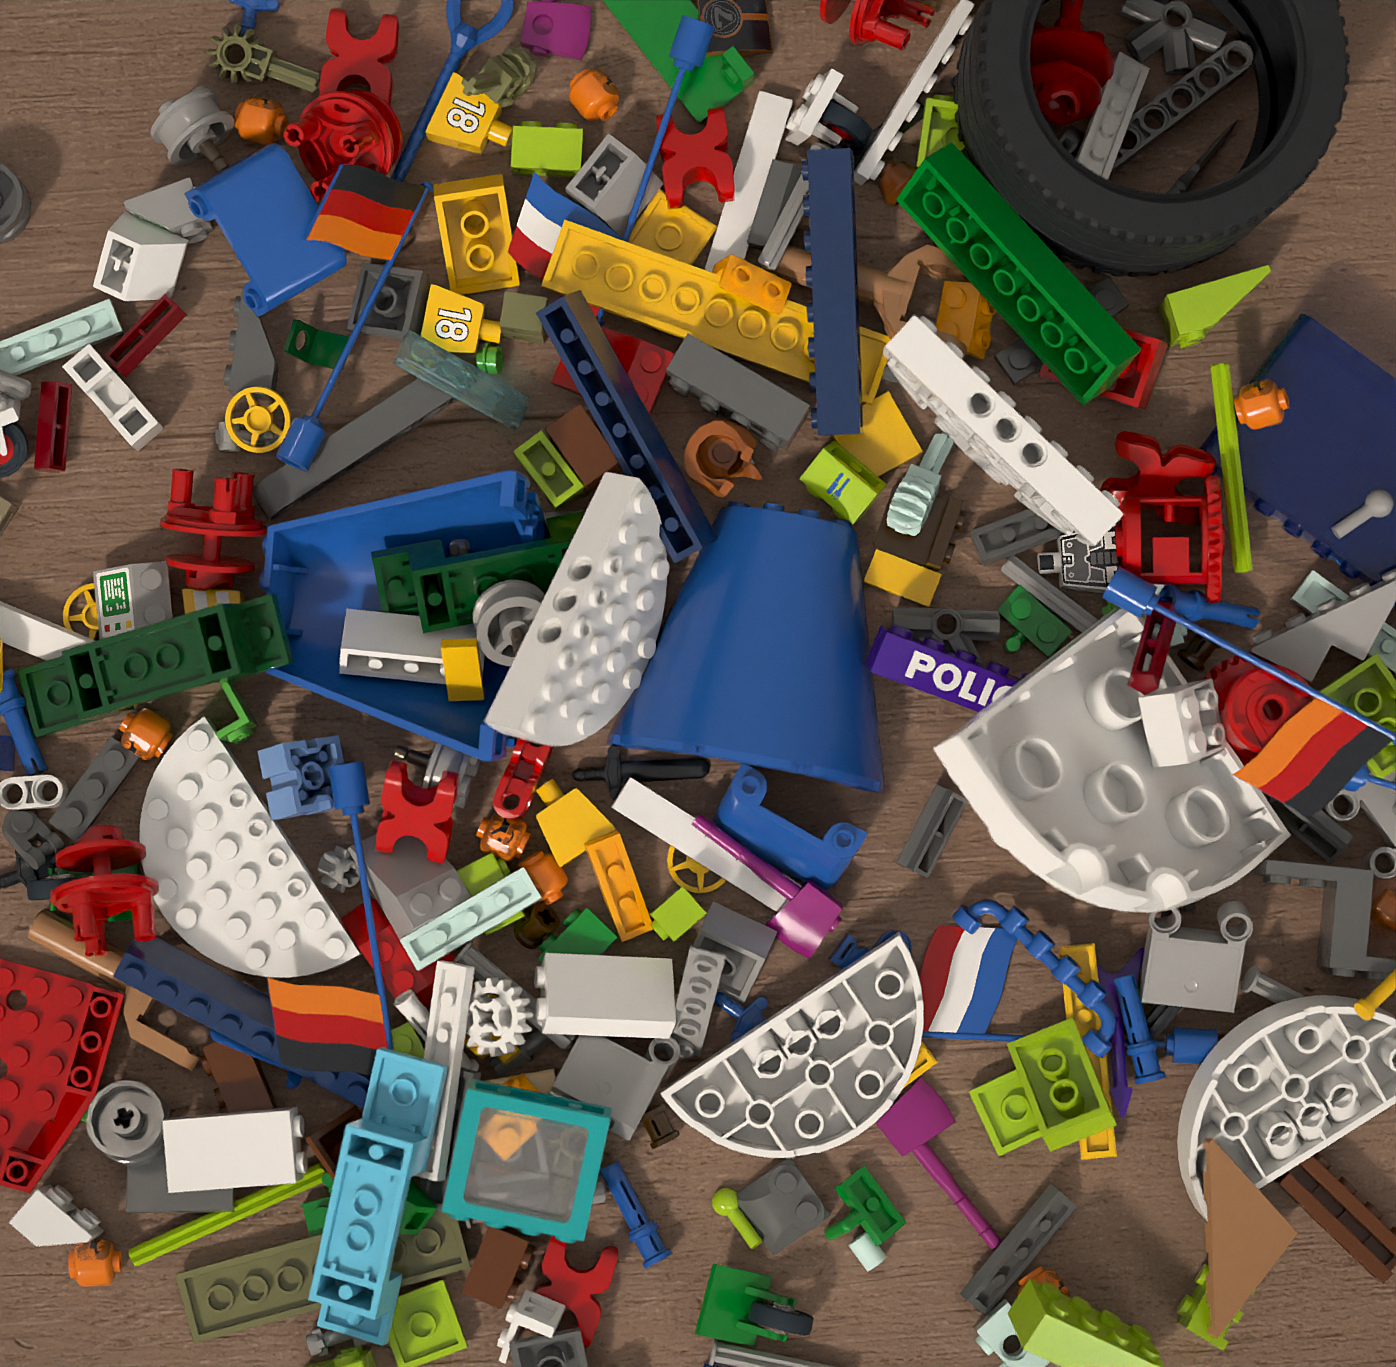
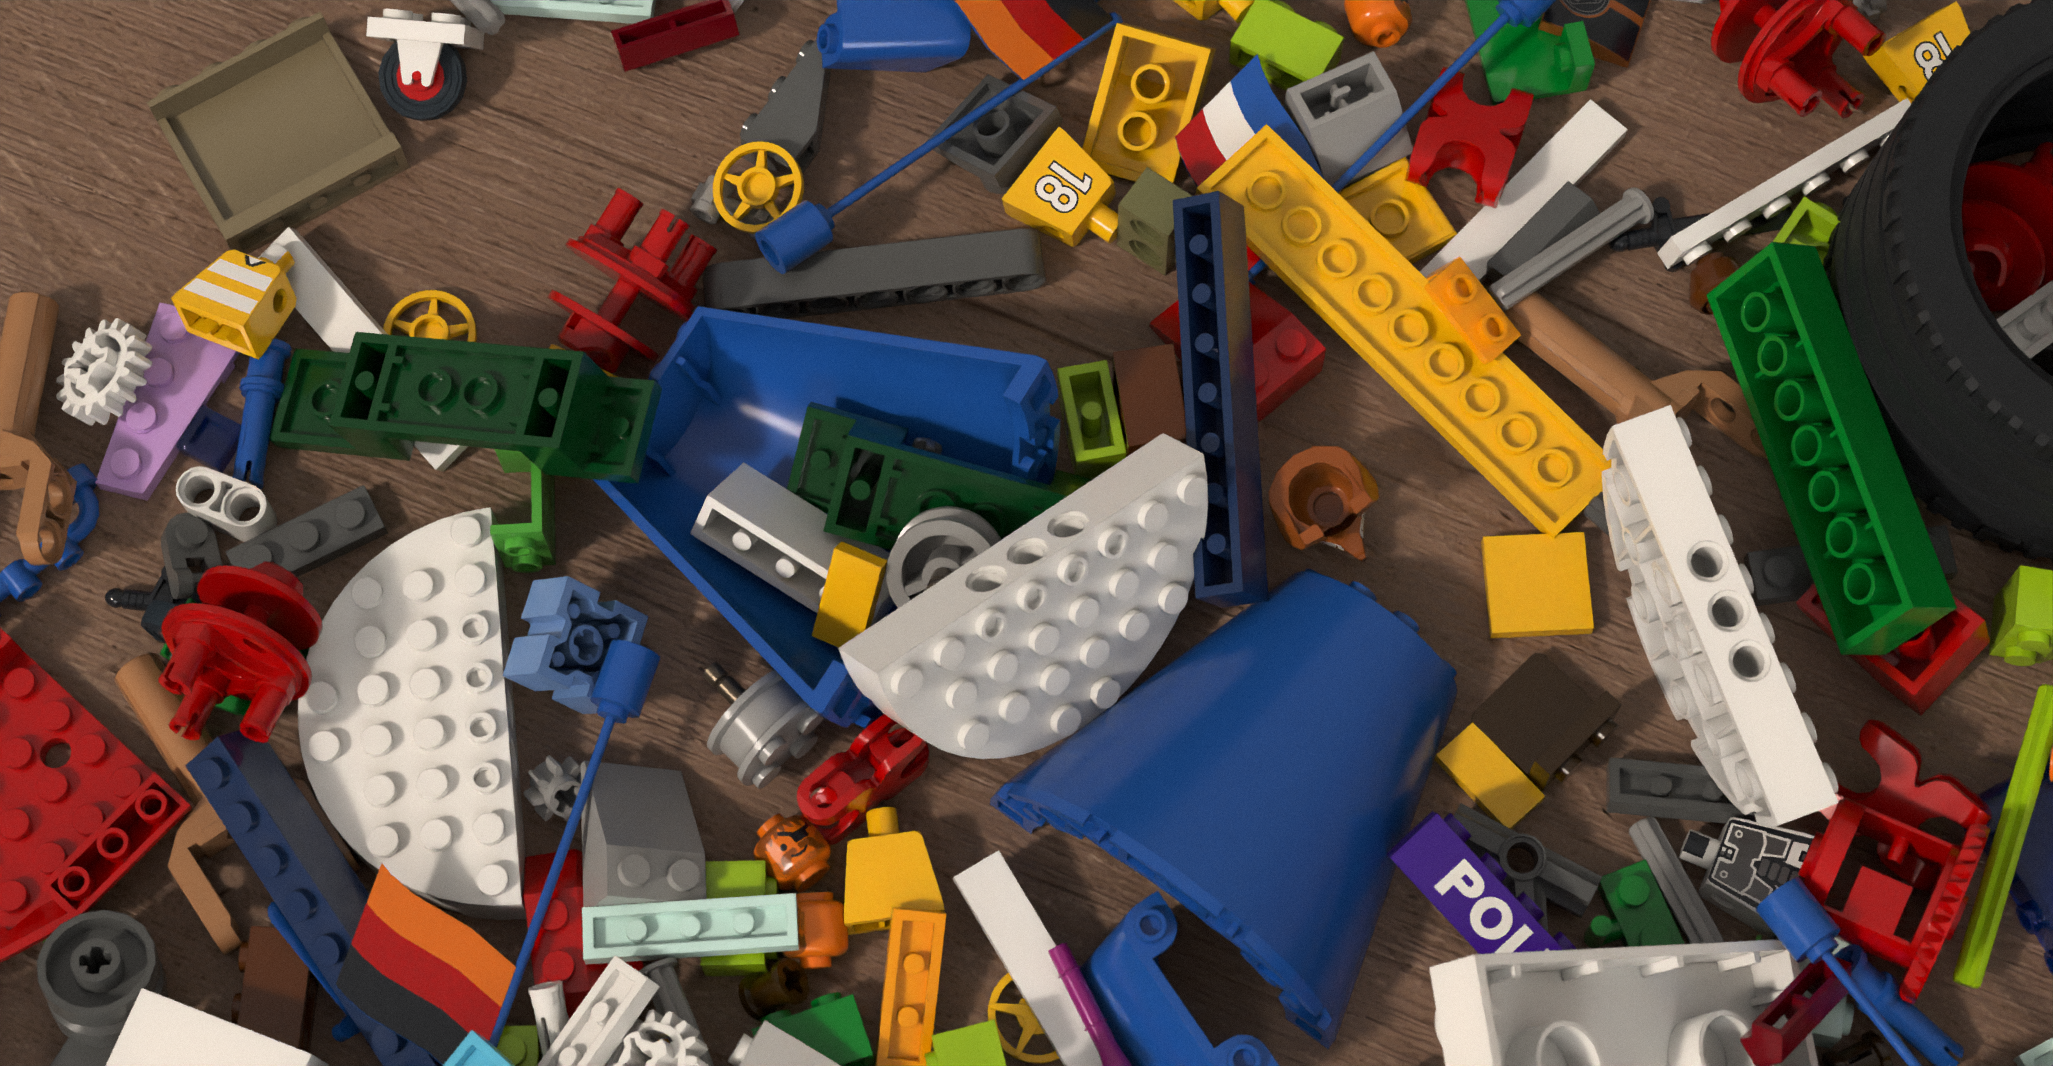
camera: 30 degrees right, 15 degrees down
(47, 426) = (497, 84): dark red piece -> none
(113, 397) = (595, 84): white arch -> none
(131, 597) = (490, 312): slope -> none
(146, 734) = (407, 499): orange head -> none
(320, 347) = (881, 144): dark green bracket -> none
(417, 811) = (694, 749): red piece -> none
(461, 380) = (1037, 259): clear light blue plate -> none
(490, 359) = (1086, 259): bright green plate -> none
(641, 771) = (1022, 861): black sword -> none
(736, 392) = (1383, 428): dark grey brick -> none
(827, 115) = (1665, 159): white plate -> none
(834, 291) = (1571, 368): dark blue brick -> none
(842, 482) = (1468, 614): lime brick -> none
(919, 489) = (1565, 669): light aqua gear -> none
(966, 316) = (1739, 482): light orange bracket -> none

